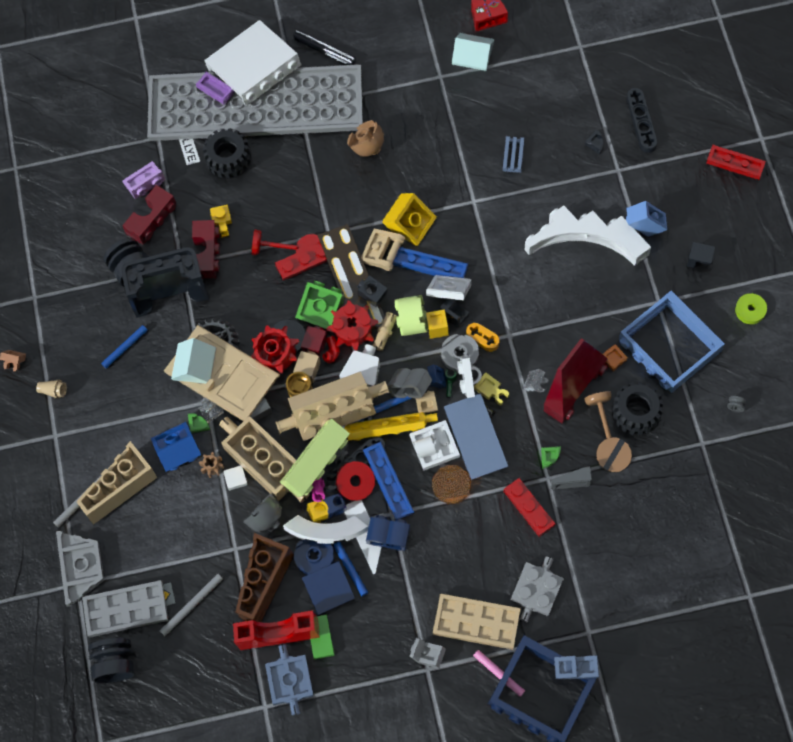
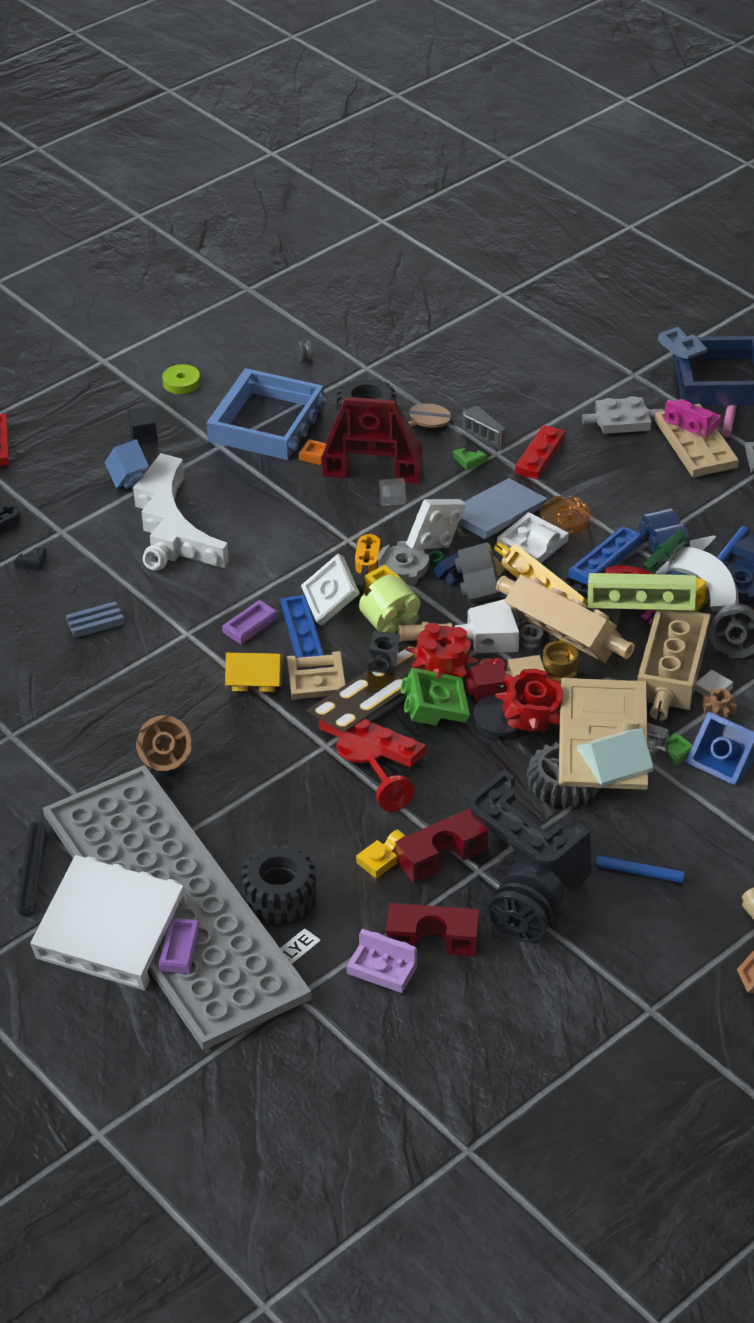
camera: 125 degrees left, 25 degrees down
(361, 515) = (665, 552): none -> dark green pin
(459, 239) = (250, 622): none -> medium lavender tile
(493, 625) = (691, 417): none -> dark pink bracket
(549, 206) = (149, 559): none -> white plate

